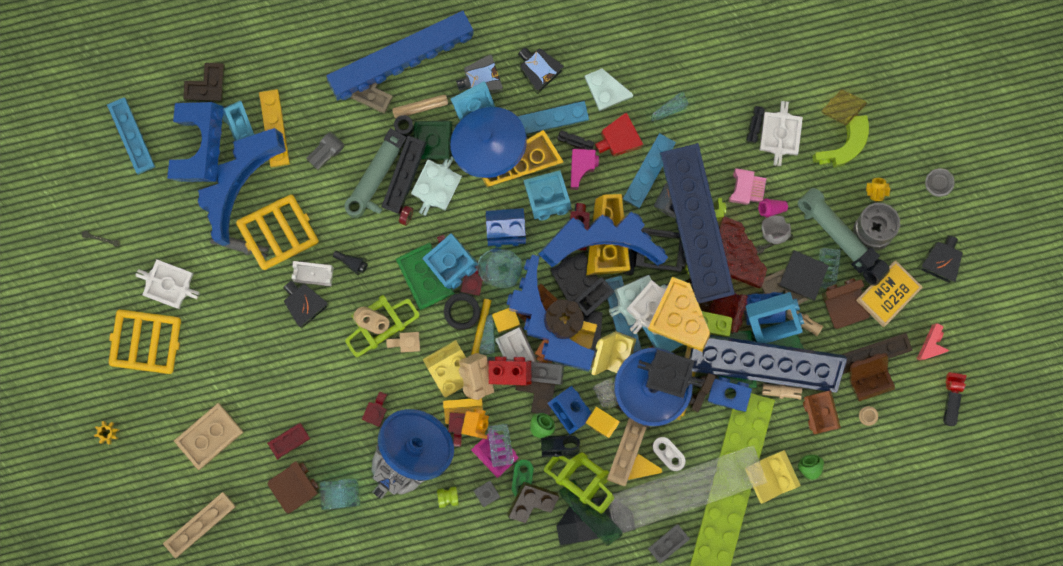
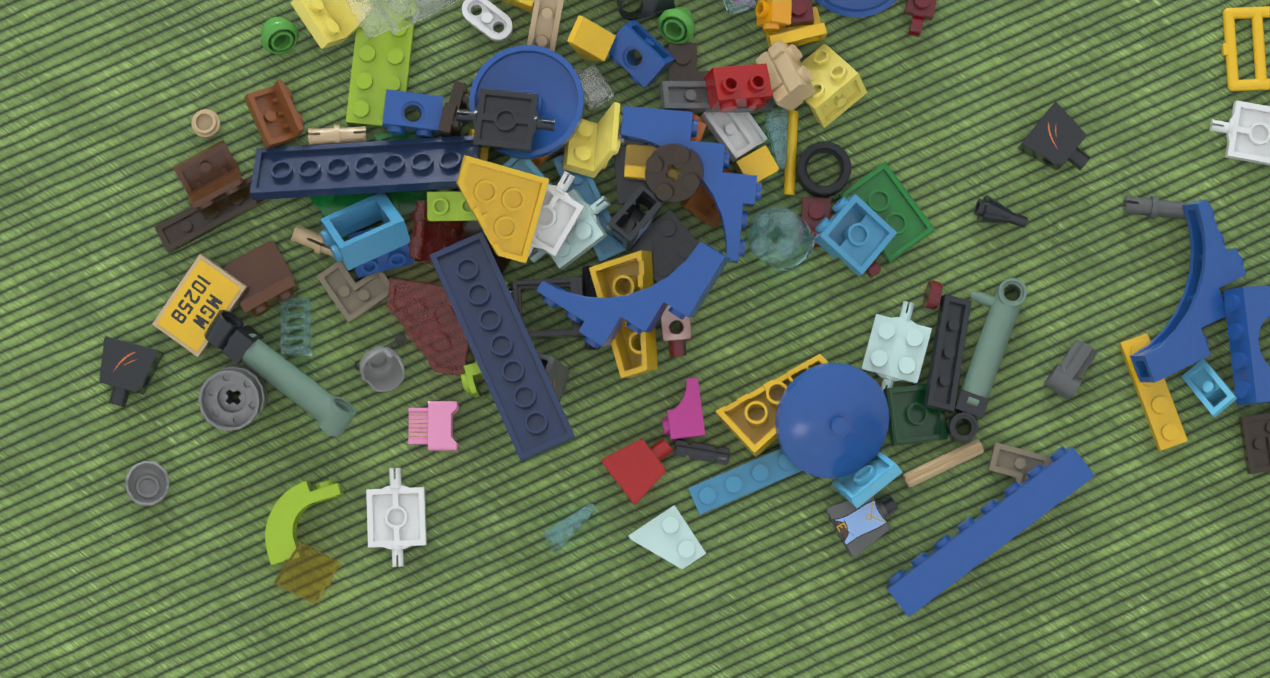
camera: 175 degrees right, 0 degrees up
(280, 256) = (1104, 200): yellow bar -> none
(312, 273) = (1052, 187): white hinge -> none
(372, 321) = (947, 130): tan plate -> none
(389, 332) = (971, 129): lime bar -> none
(408, 342) = (894, 113): tan plate -> none
(505, 224) = (783, 303): blue brick -> none
(539, 68) = (777, 551): torso -> none
(547, 195) = (729, 361): medium azure plate -> none
(648, 172) = (585, 426): dark azure plate -> none
(755, 124) = (437, 525): black axle -> none
(772, 207) = (392, 402): dark pink cone -> none
(803, 275) = (331, 305): black tile -> none
(878, 189) = (238, 457): yellow gear -> none
(930, 347) = (129, 234): coral slope -> none
(956, 384) = (84, 189): piece -> none

